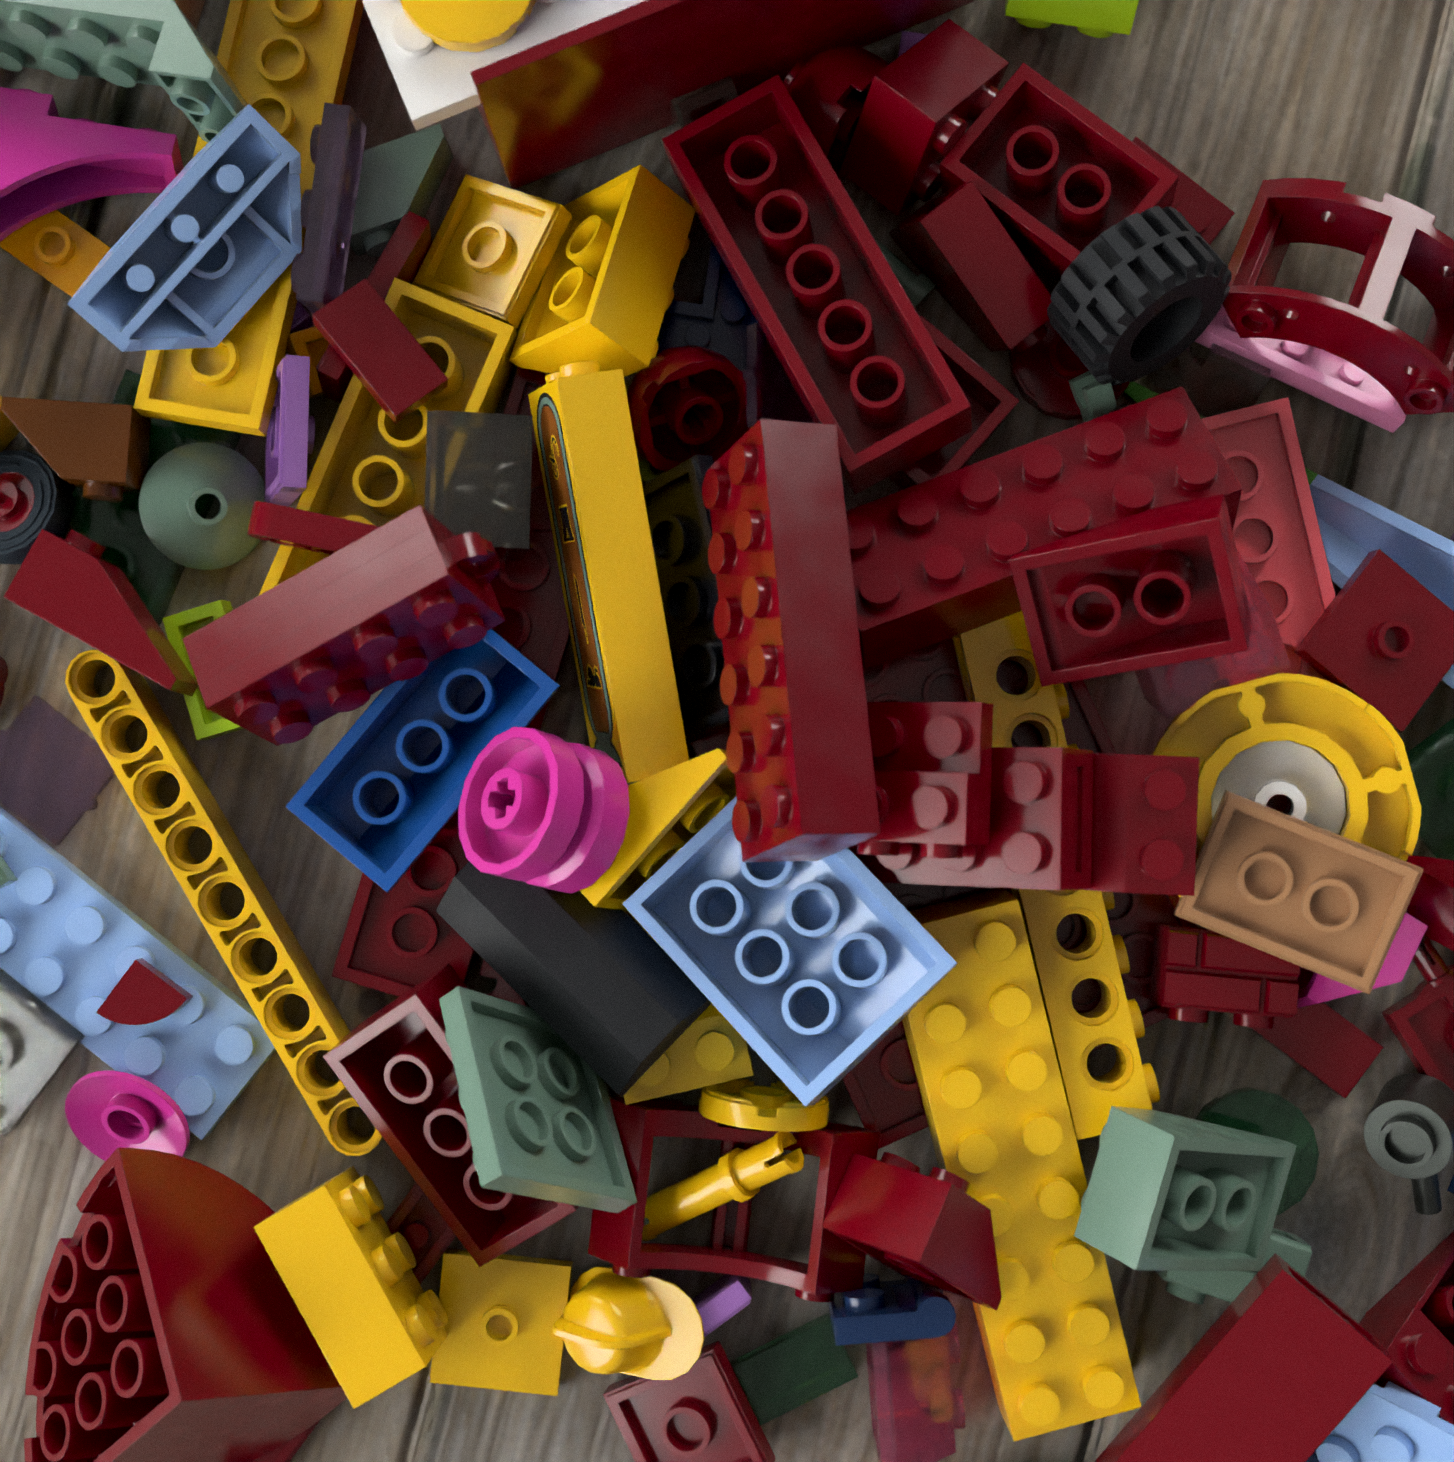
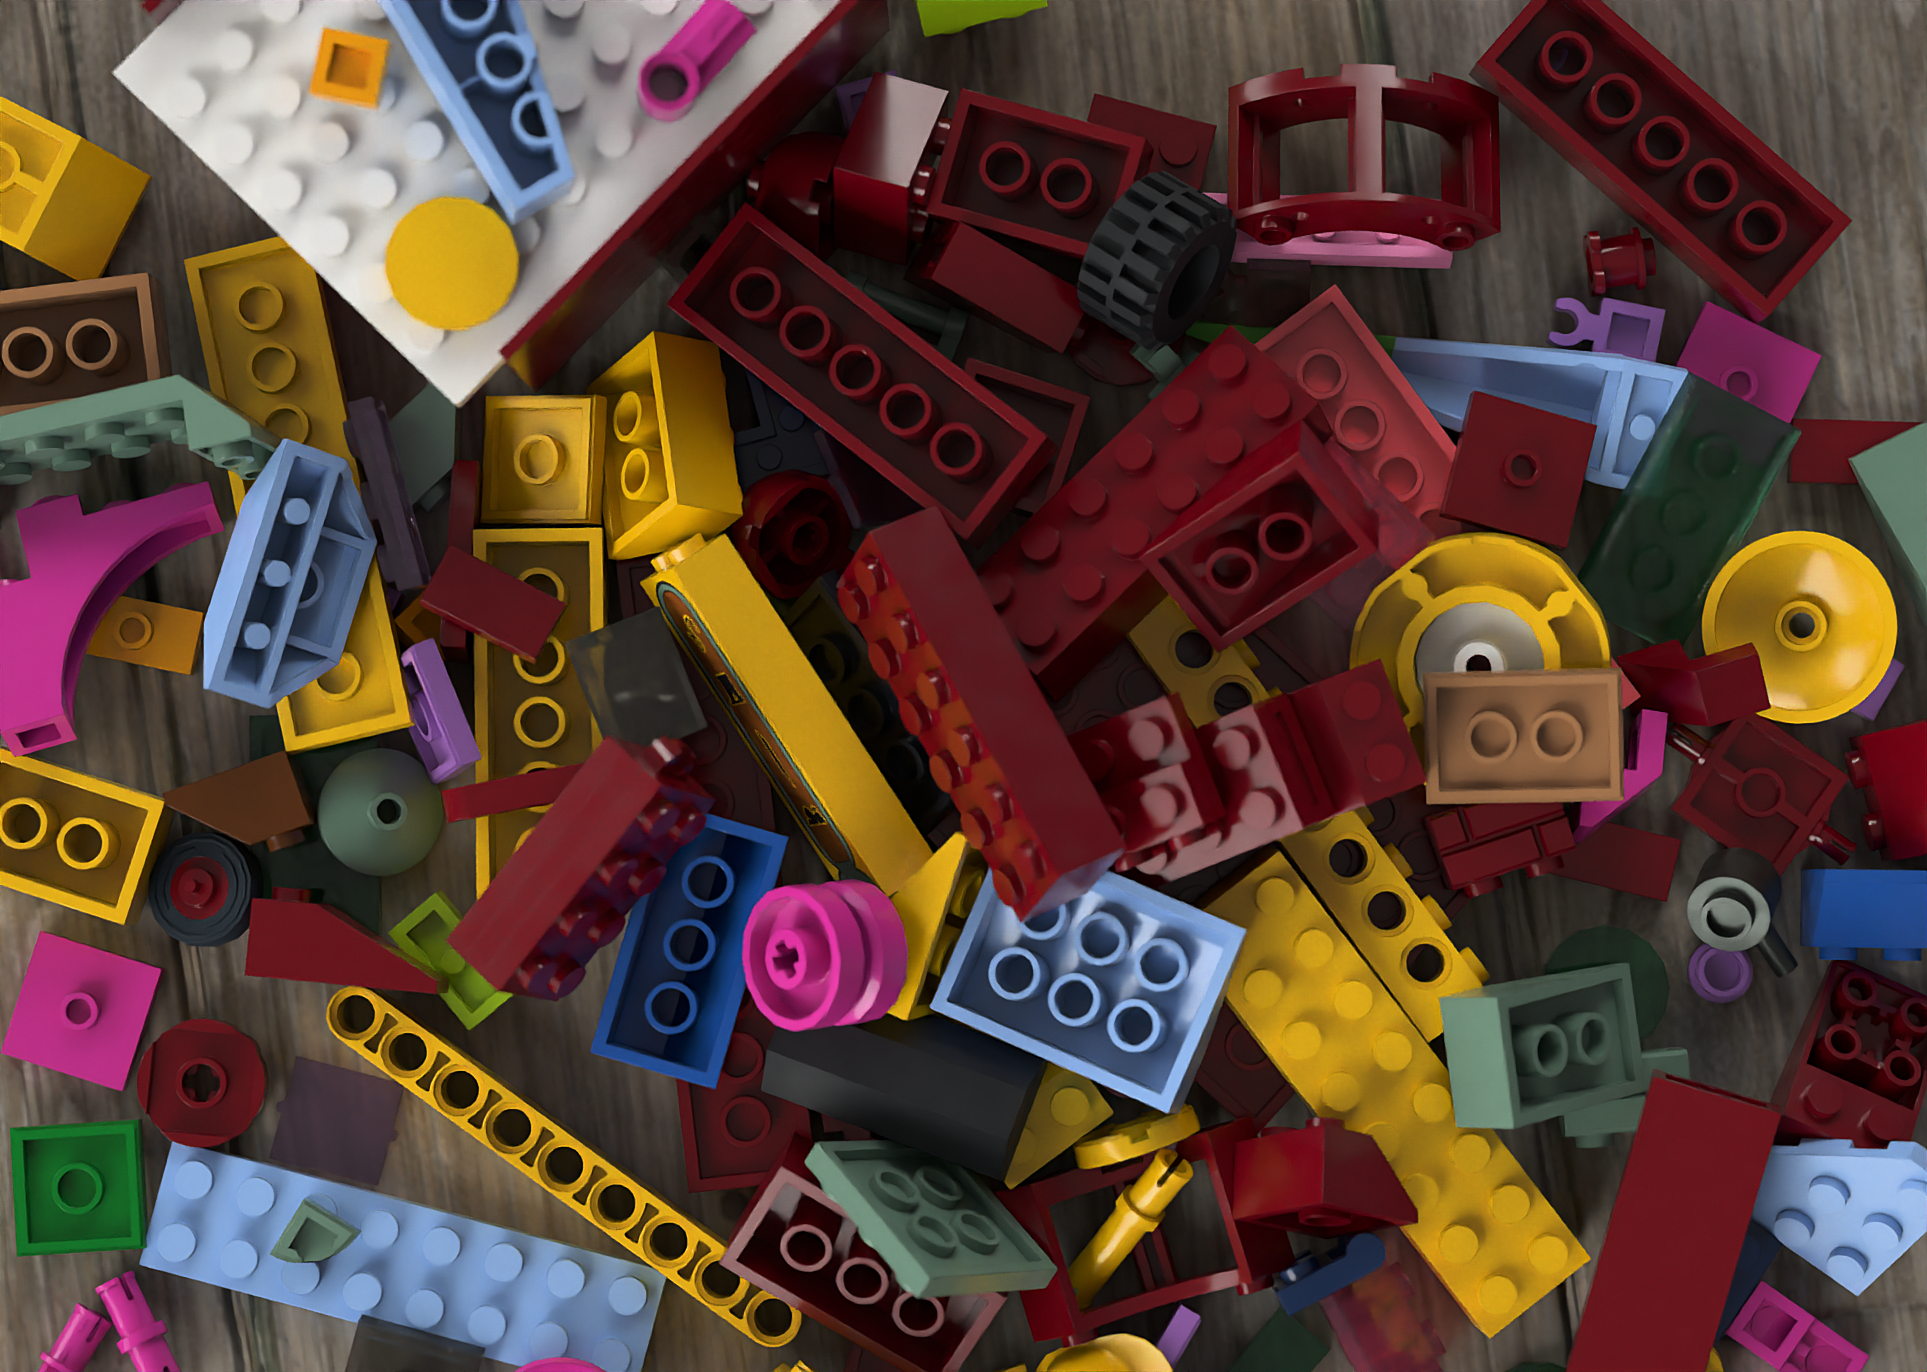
camera: 25 degrees left, 0 degrees up
(143, 996) = (527, 1285): dark red tile -> none
(1364, 1184) = (1719, 974): none -> medium lavender plate

